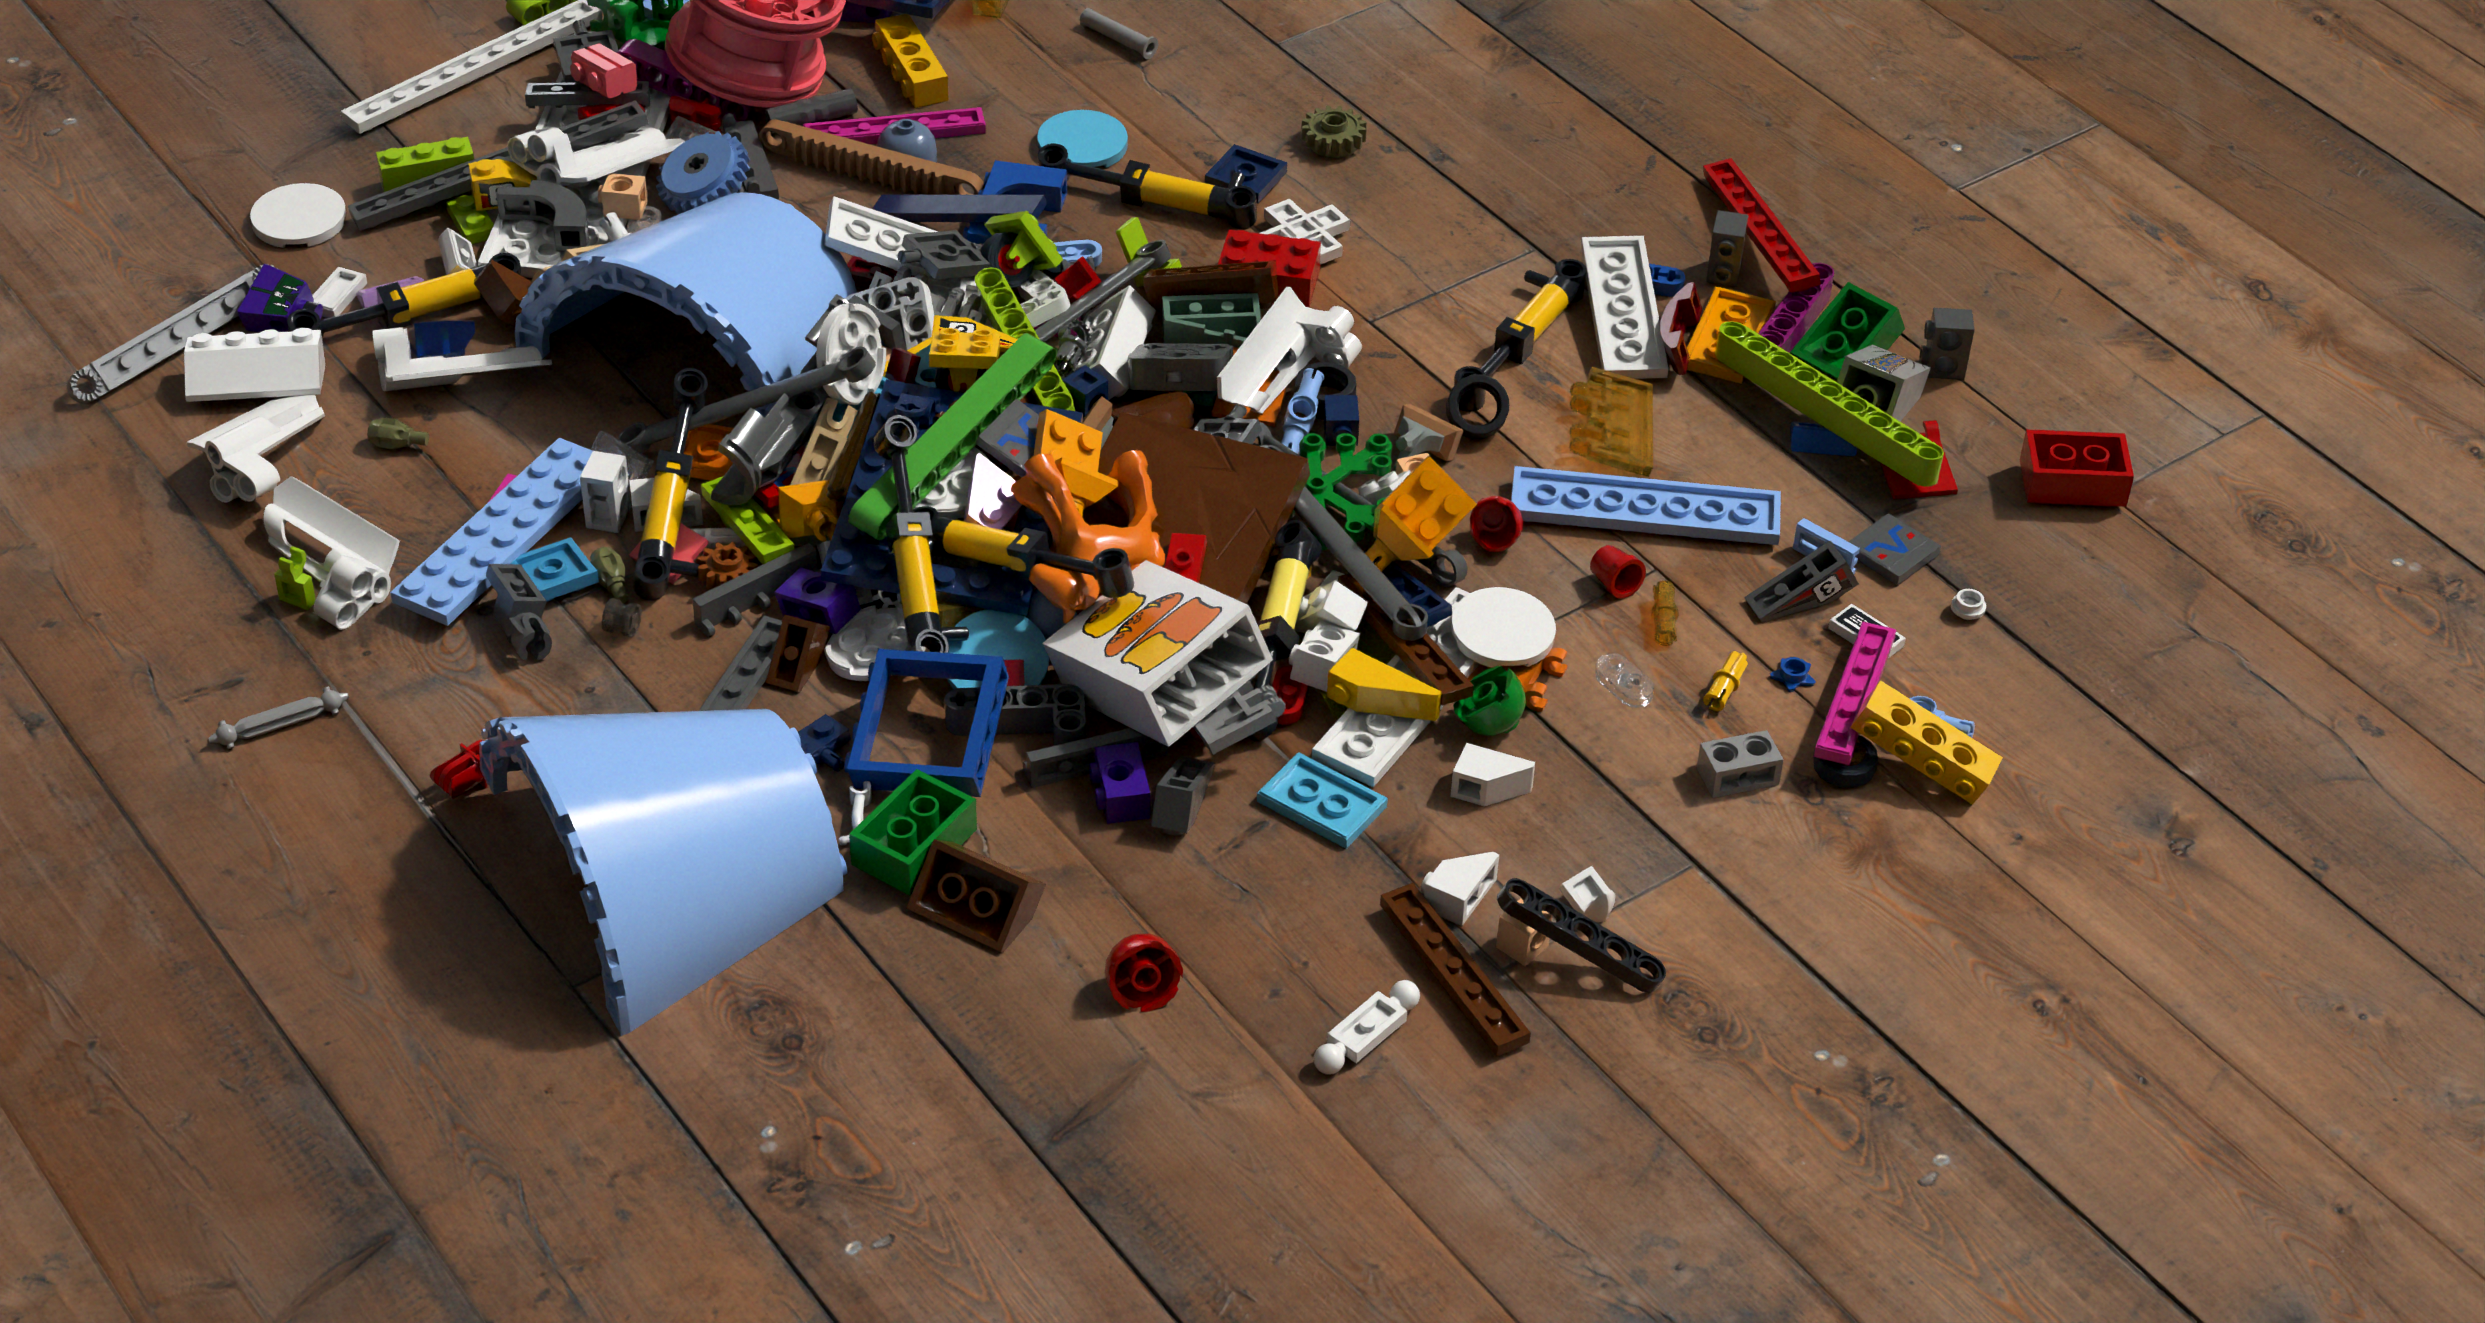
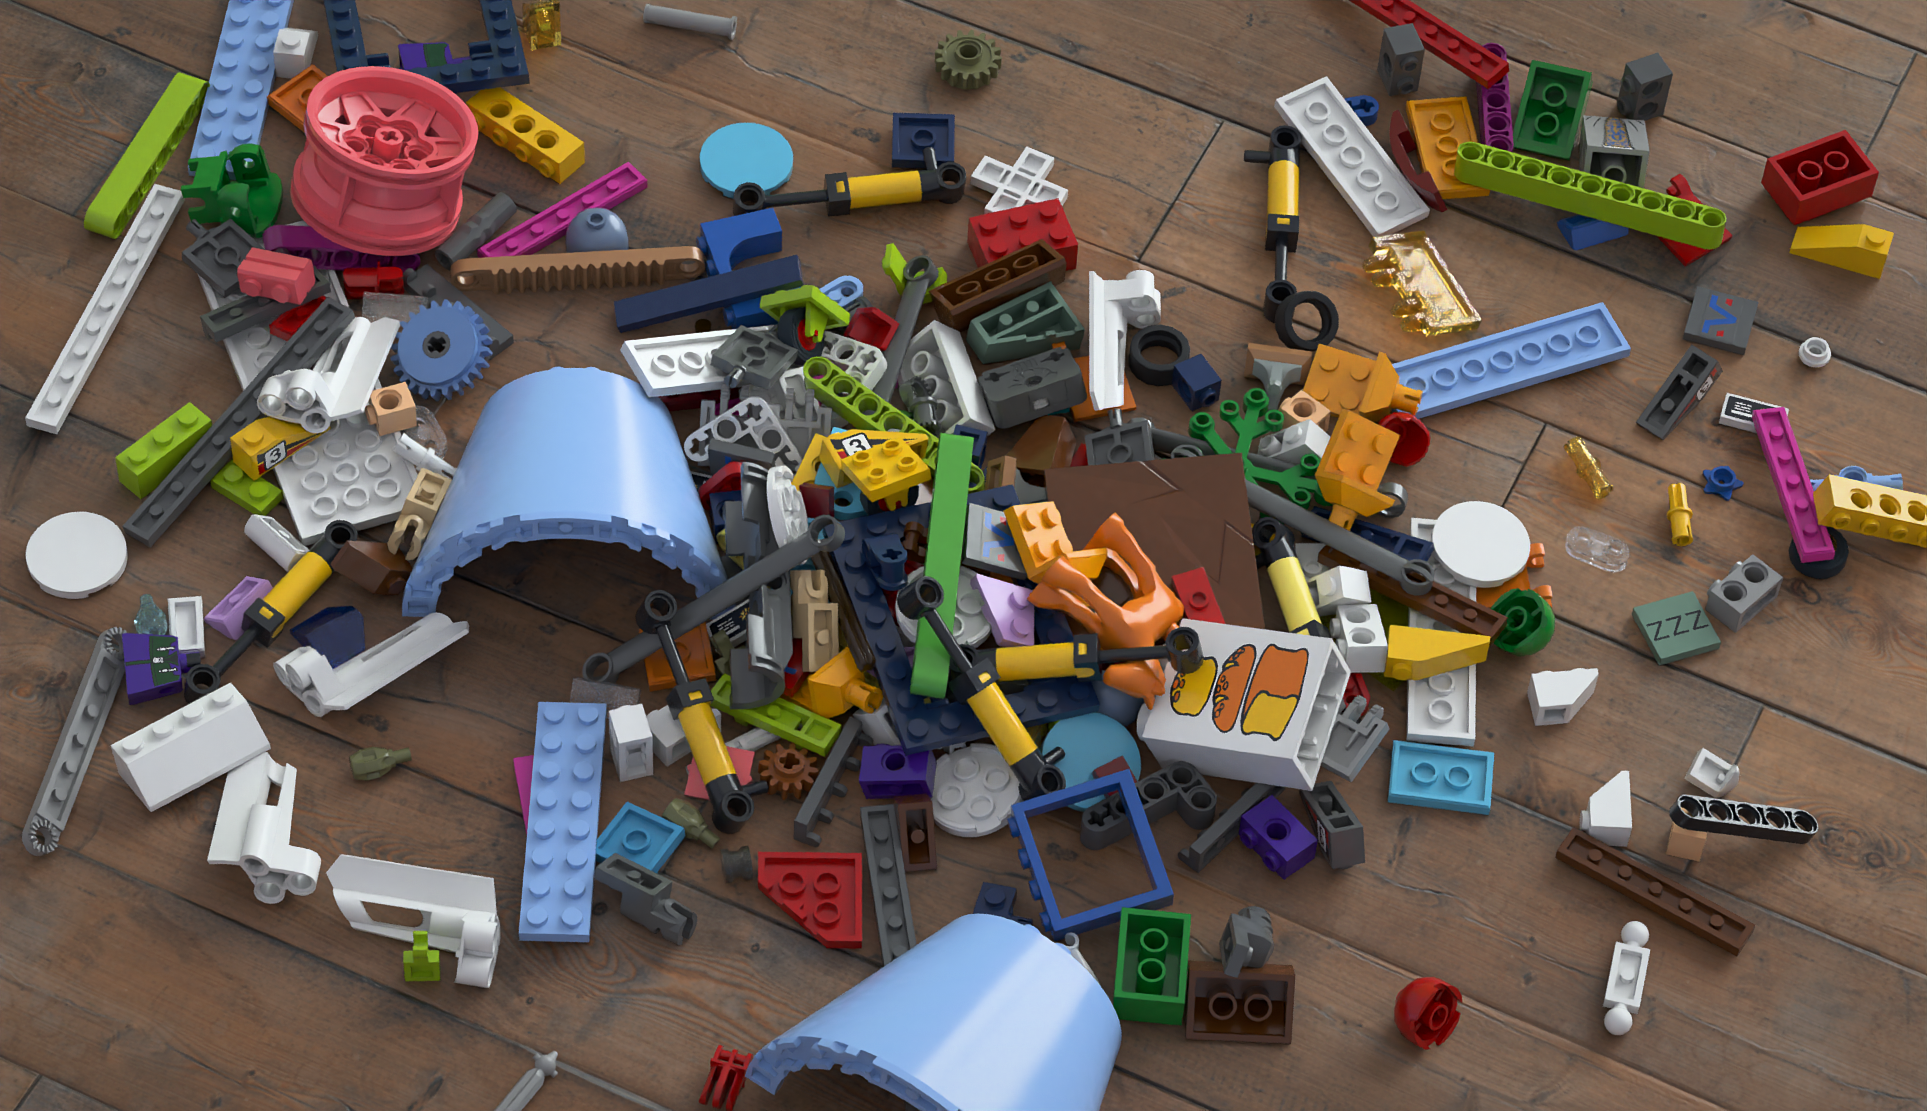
camera: 30 degrees left, 10 degrees up
(312, 272) = (150, 618): none -> clear light blue piece
(547, 204) = (339, 448): dark grey arch -> none
(675, 664) = (818, 892): none -> red plate
(1010, 840) = (1246, 940): none -> dark grey plate
(1304, 402) = (1163, 379): light blue pin -> none
(1488, 467) = (1358, 384): none -> light orange plate
(1618, 571) = (1526, 442): red piece -> none
(1652, 769) = (1676, 628): none -> sand green tile
(1811, 533) = (1669, 343): light blue tile -> none
(2068, 534) = (1849, 247): none -> yellow slope

